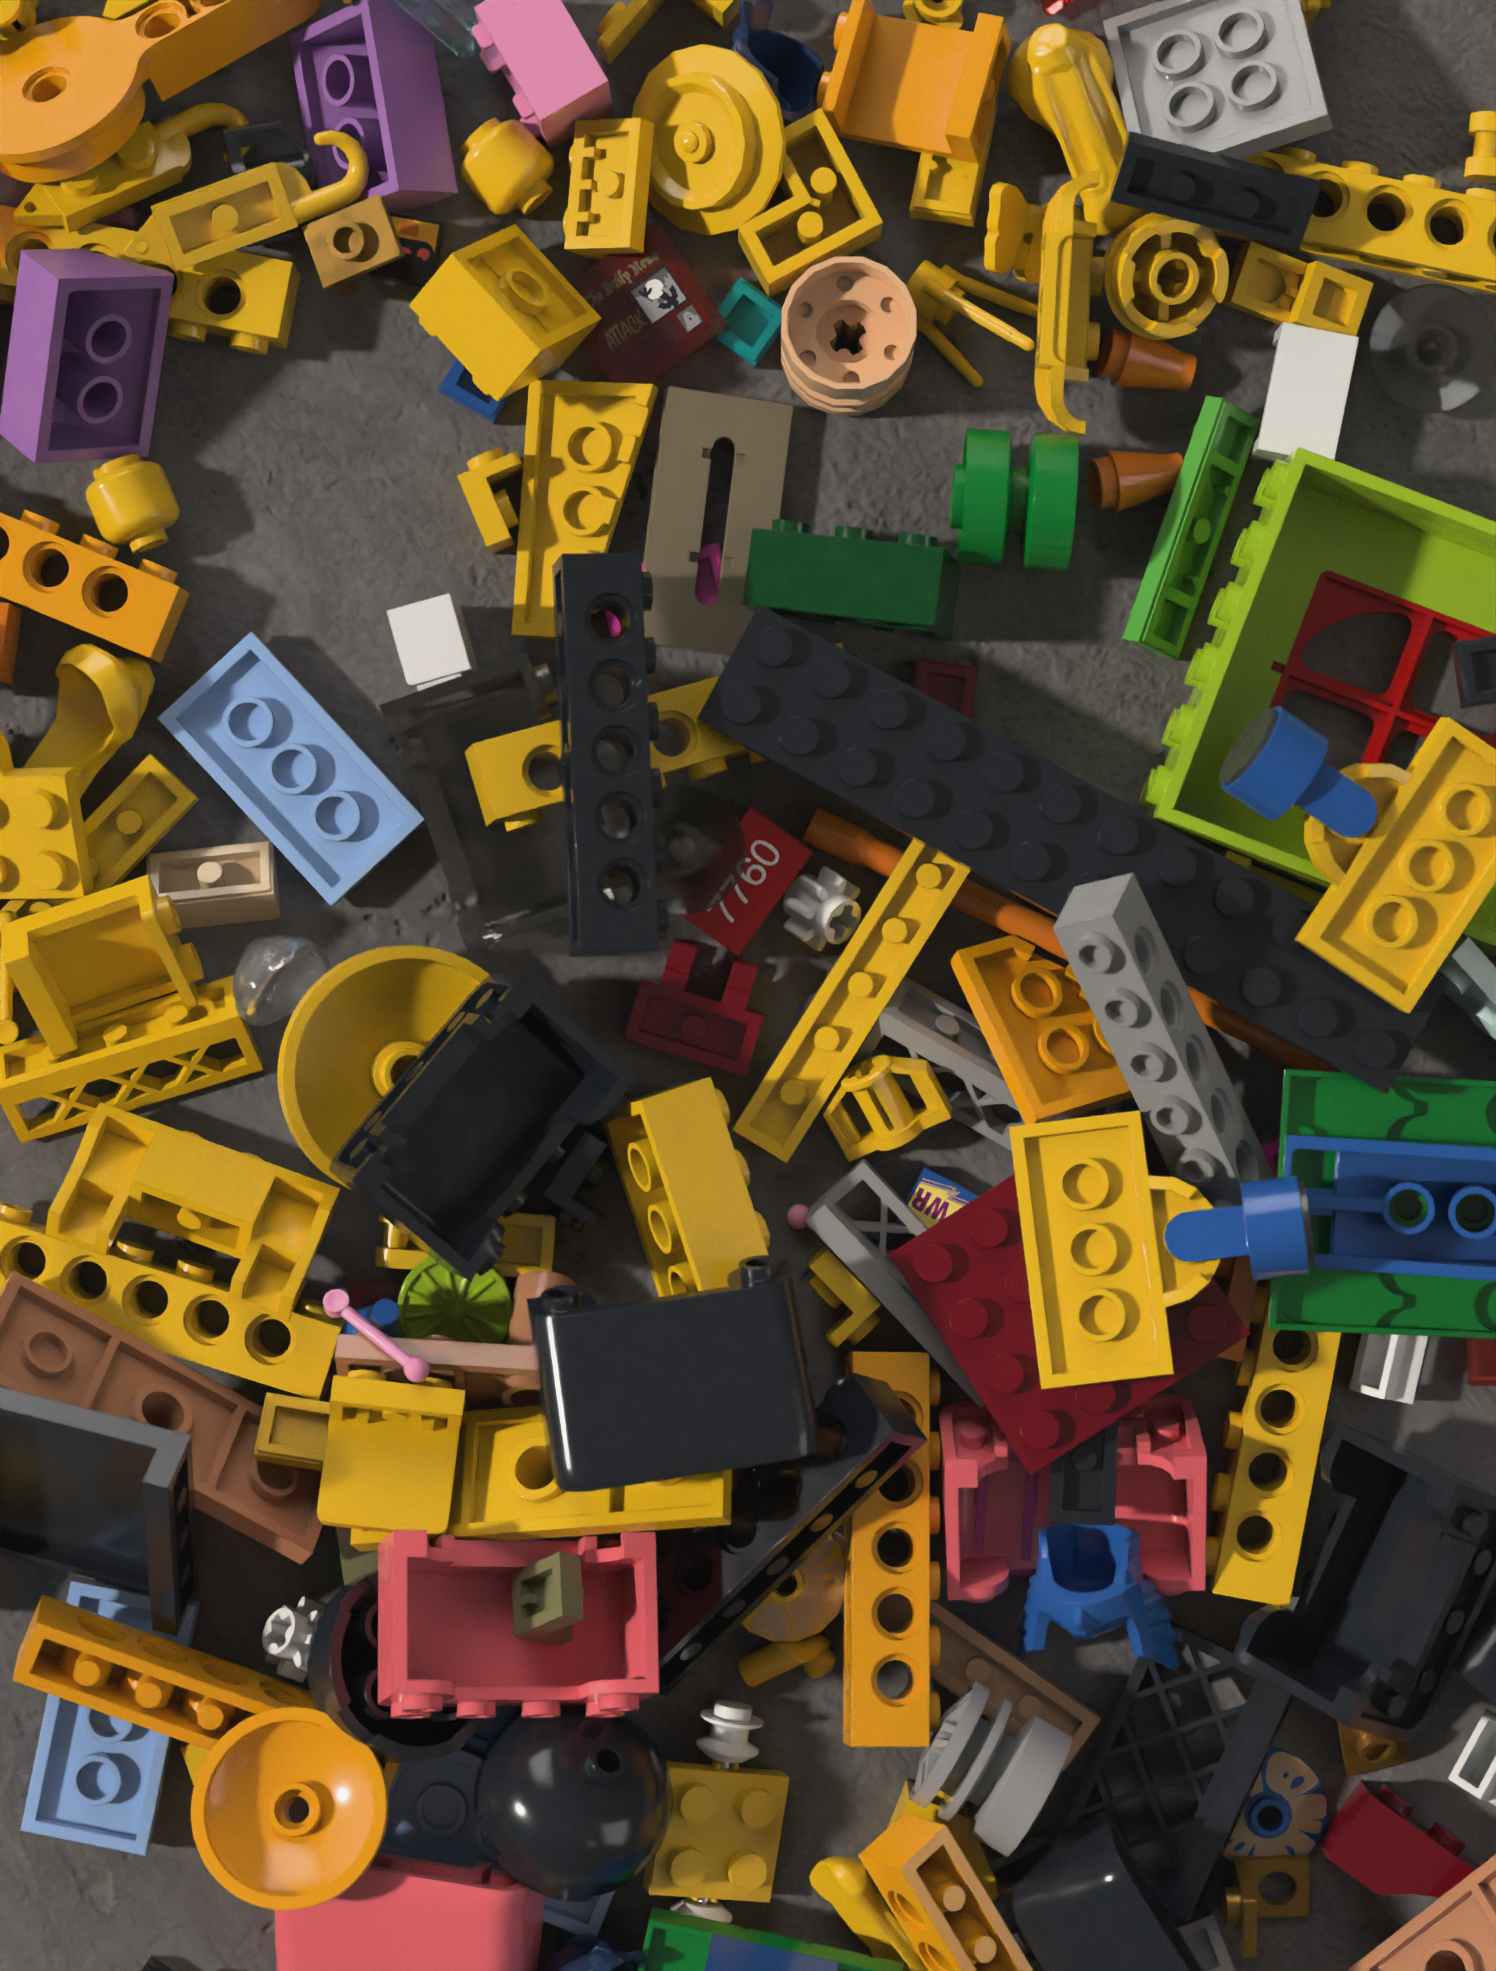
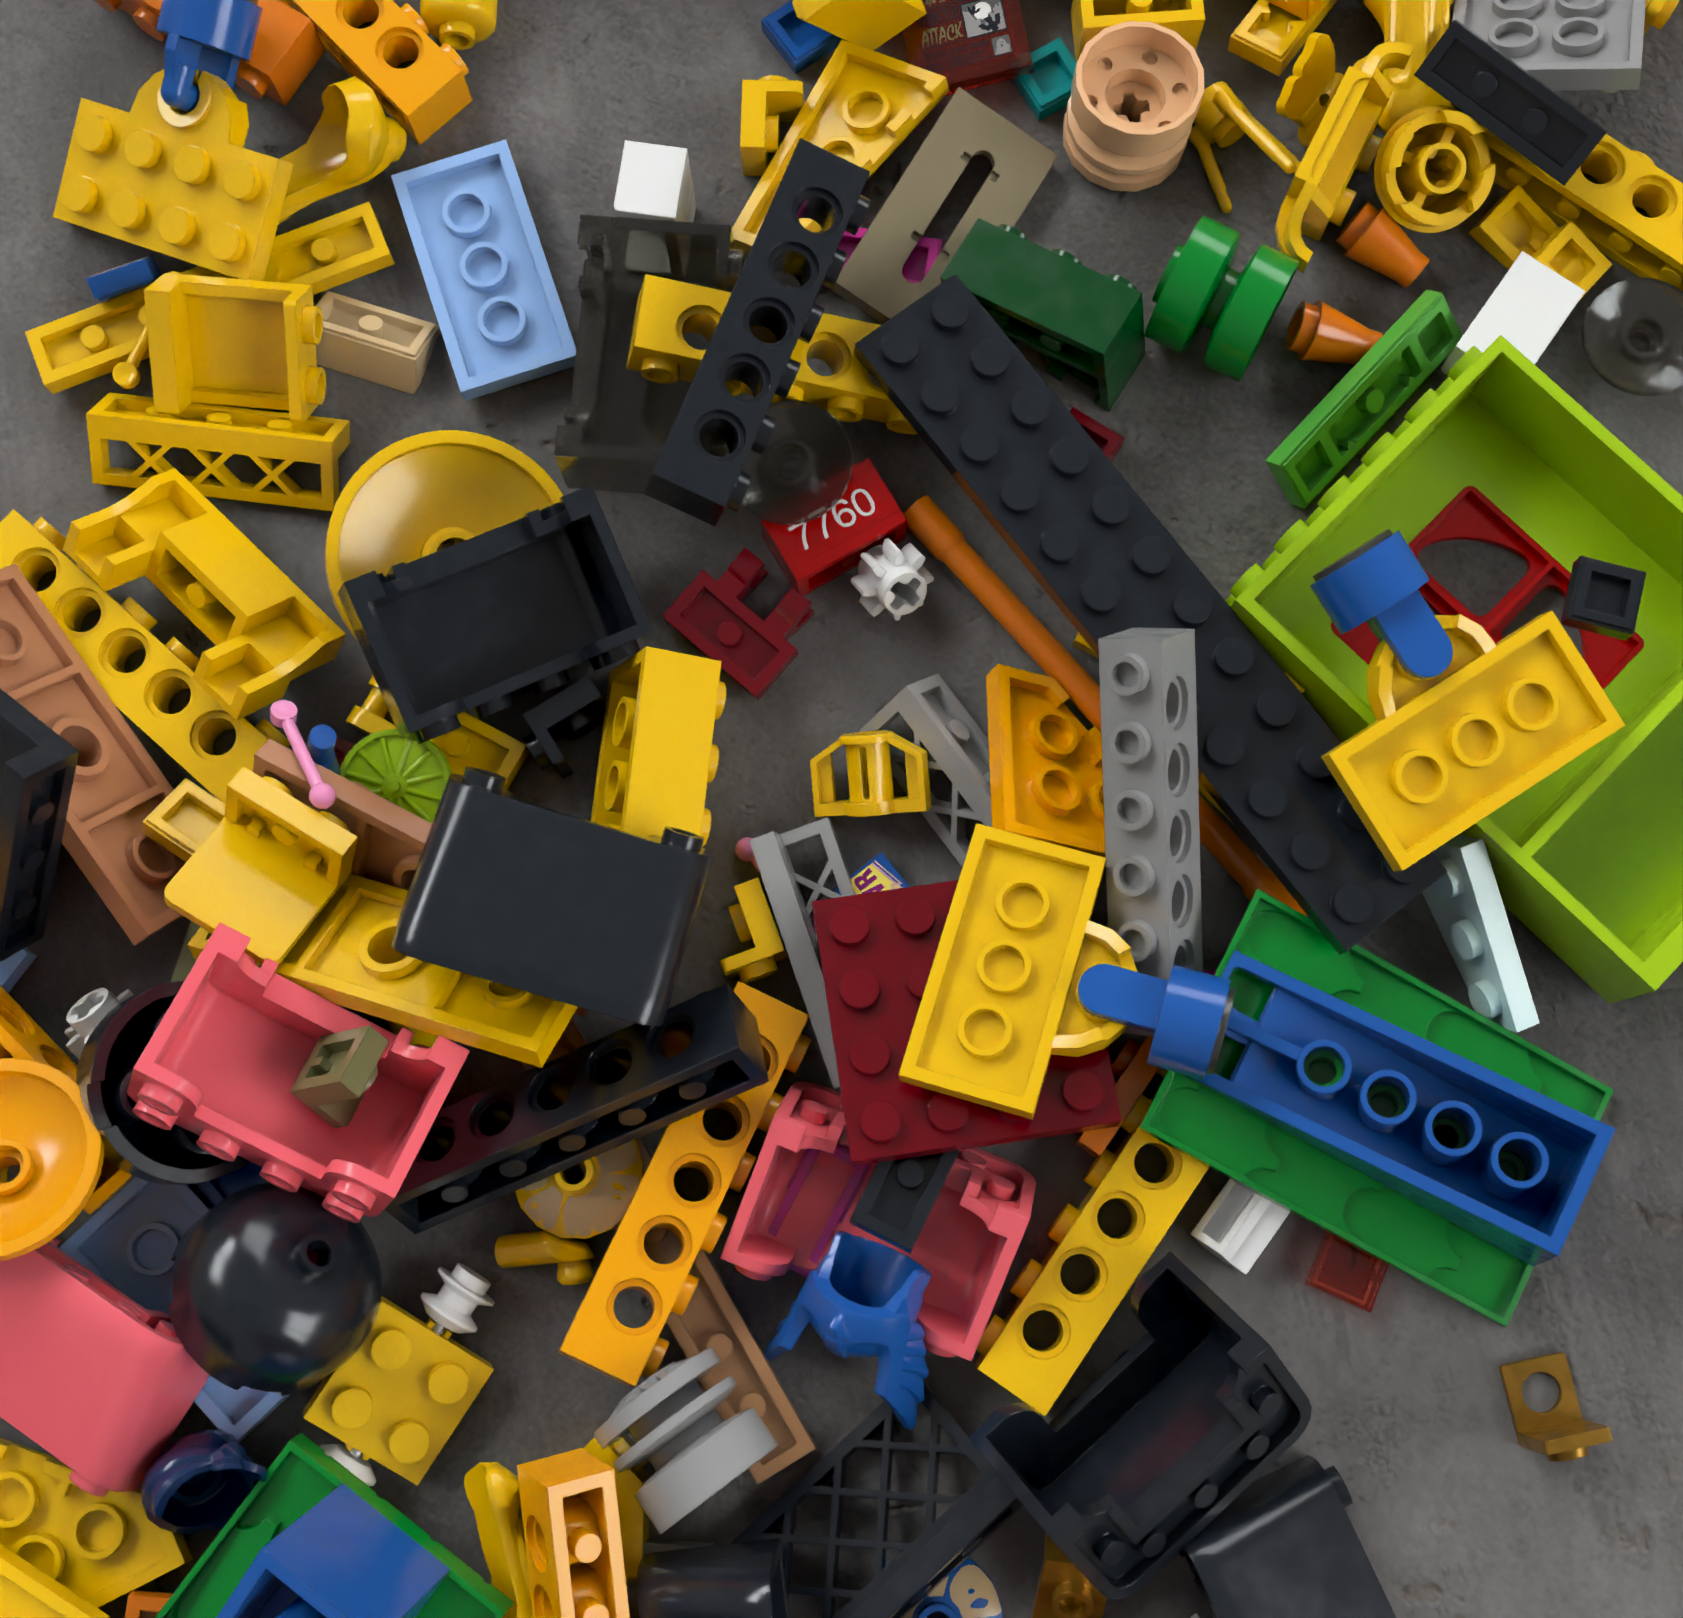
camera: 25 degrees right, 10 degrees down
(276, 976) = (375, 421): clear hat -> none
(850, 1000) = (883, 665): yellow plate -> none

